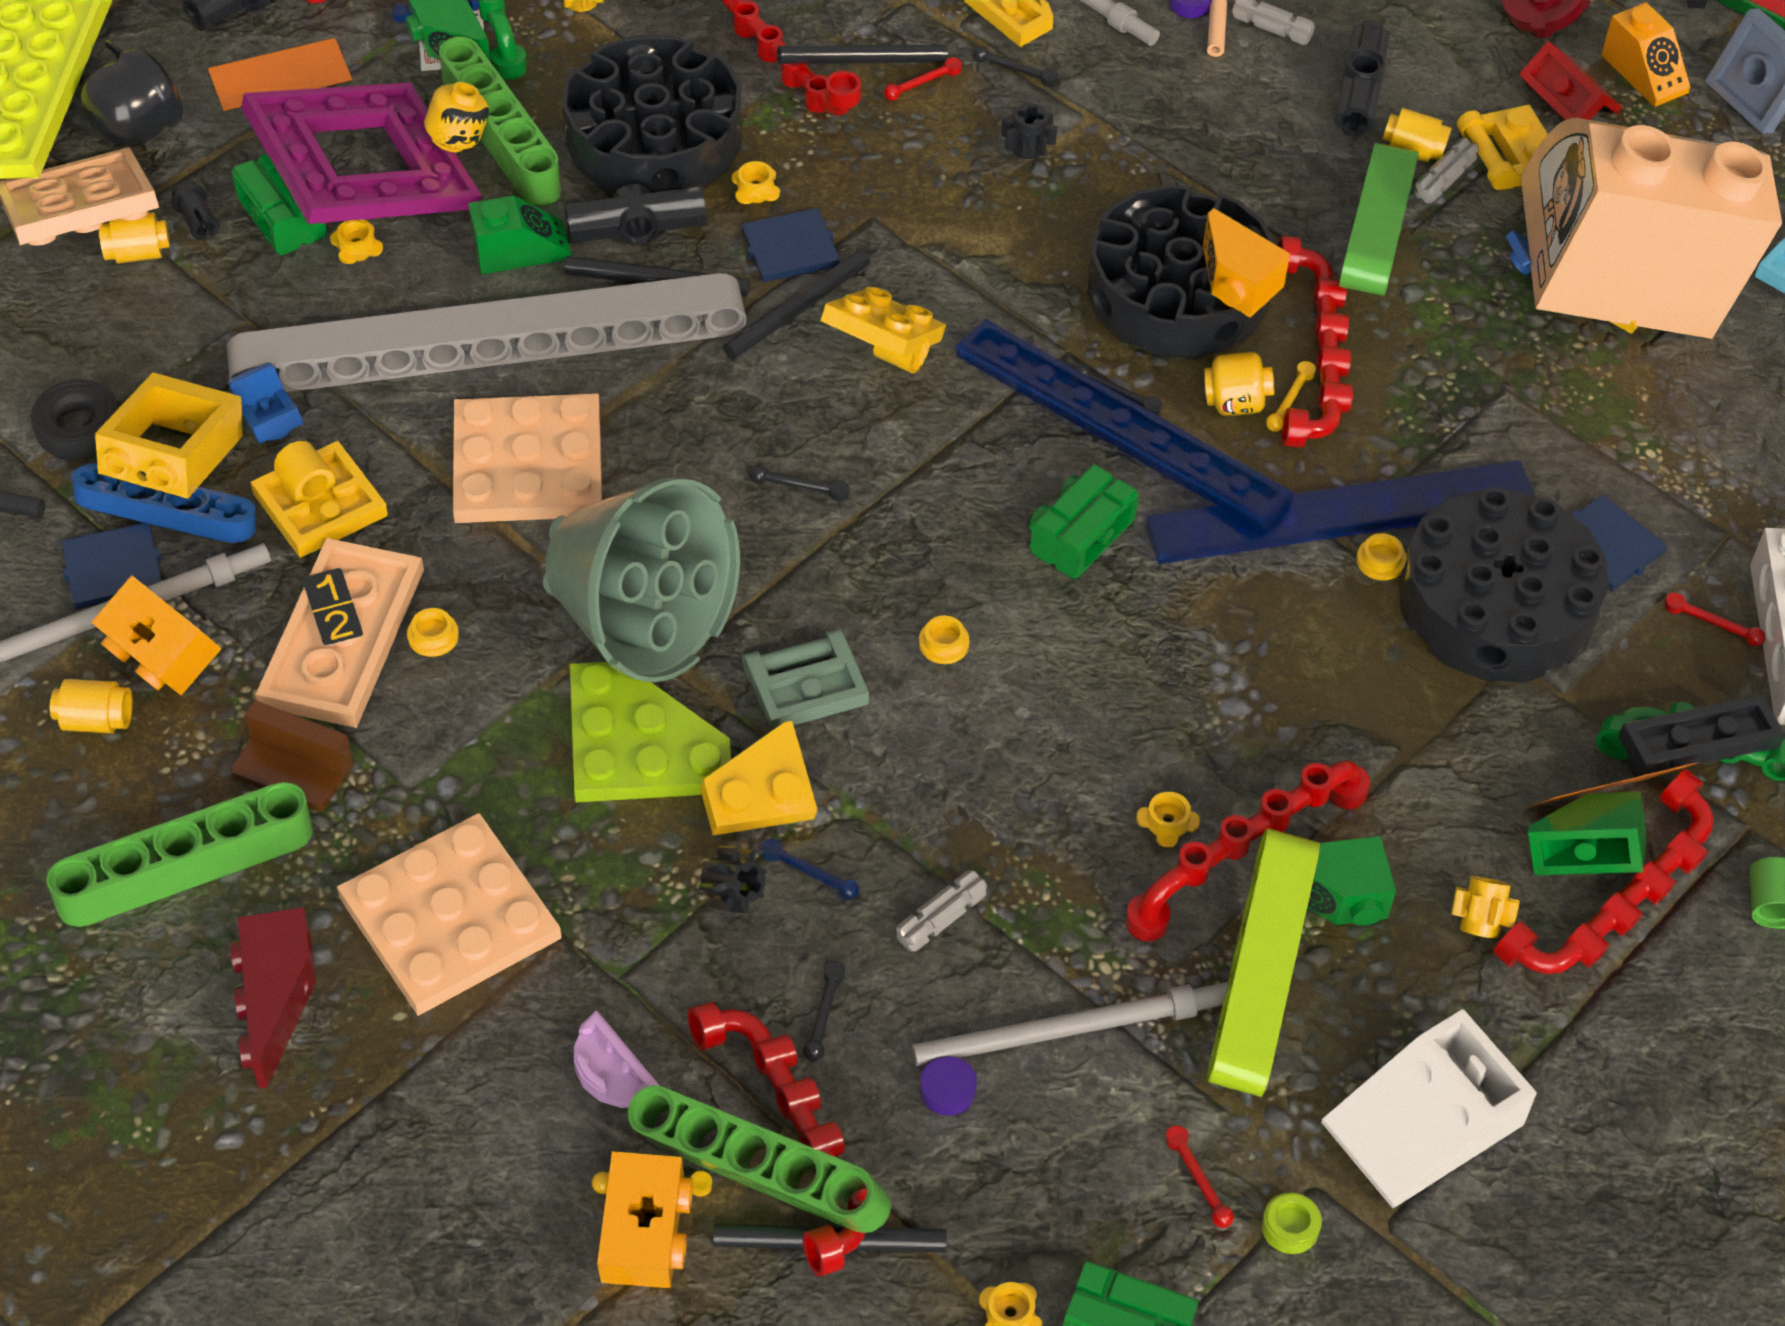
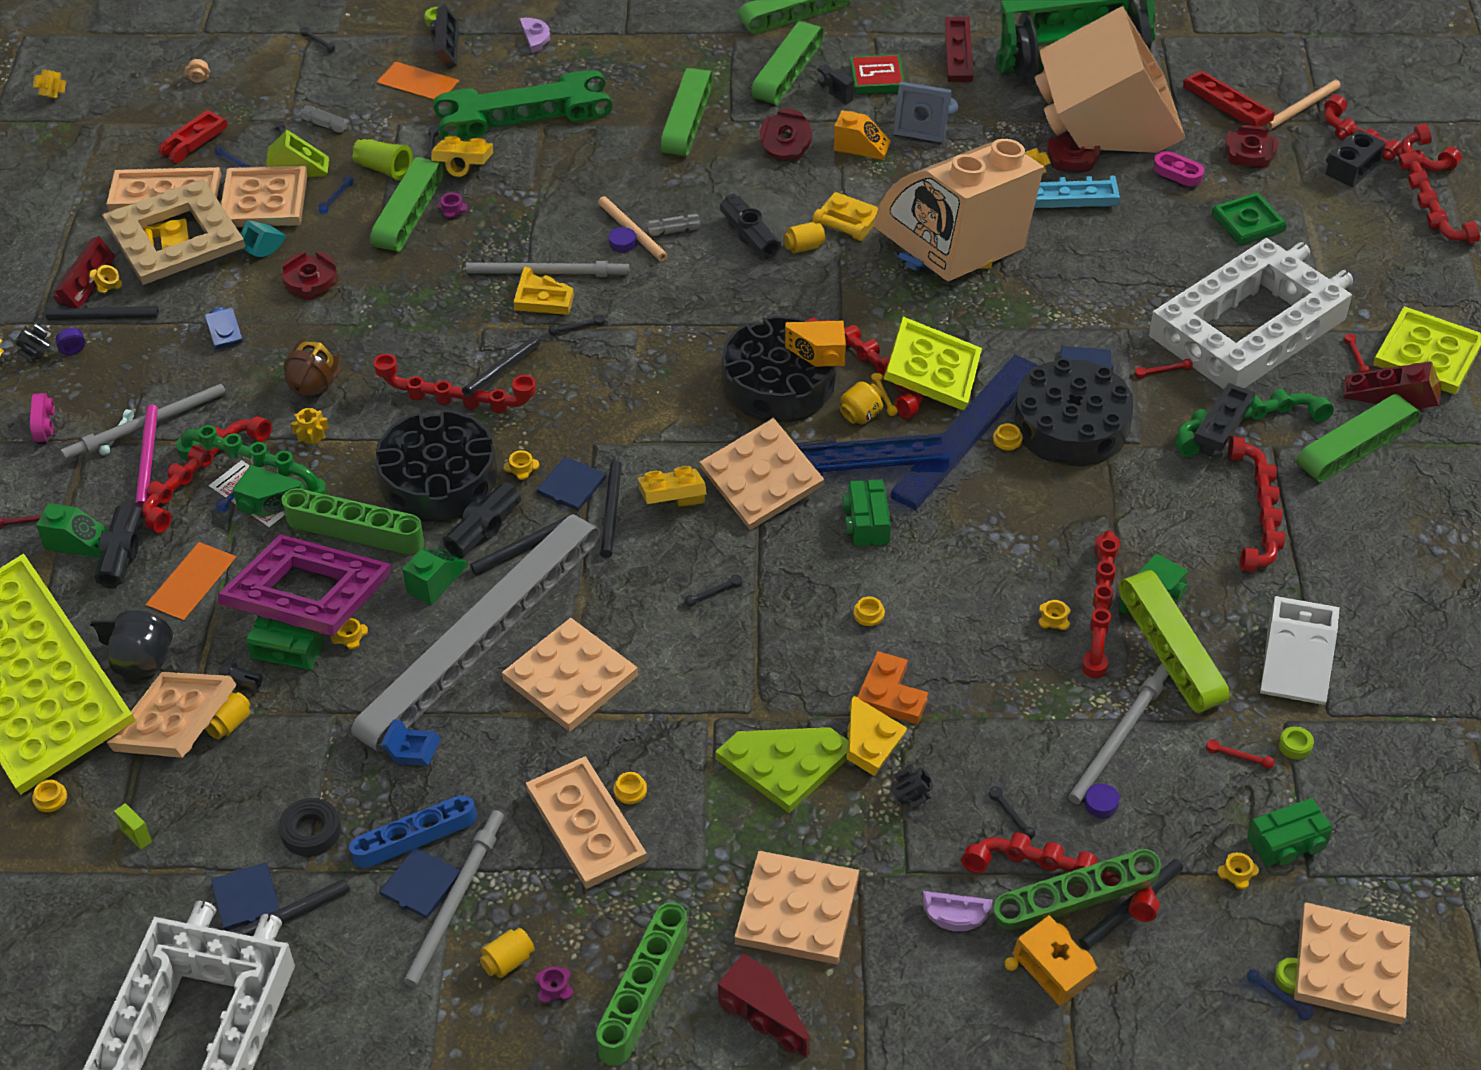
camera: 40 degrees left, 5 degrees down
(100, 769) = (551, 976): none -> magenta plate
(156, 636) = (483, 885): light orange brick -> none
(203, 412) = (376, 774): yellow window -> none
(293, 752) = (633, 896): reddish brown panel -> none
(317, 496) = (492, 768): yellow plate -> none
(332, 606) = (571, 811): black sticker -> none
(456, 116) = (339, 531): yellow head -> none
(647, 574) = (712, 679): sand green cone -> none
(773, 850) = (958, 753): clear blue hinge -> none
(808, 690) = (837, 681): sand green plate -> none
(848, 750) = (885, 693): none -> orange plate
(941, 910) = (1010, 729): light grey axle -> none
(952, 67) = (545, 345): red hinge -> none
(1009, 383) = (762, 473): none -> light nougat plate
(1029, 131) = (626, 350): black gear -> none
(1379, 219) = (837, 285): bright green beam -> none
(1384, 396) = (933, 363): none -> neon yellow plate
(1446, 170) = (832, 246): light grey axle -> none
(1485, 907) = (1223, 552): yellow gear -> none
(1566, 84) = (841, 173): red panel -> none
(1591, 836) = (1230, 490): green slope -> none
(1599, 788) = (1211, 467): orange sticker -> none

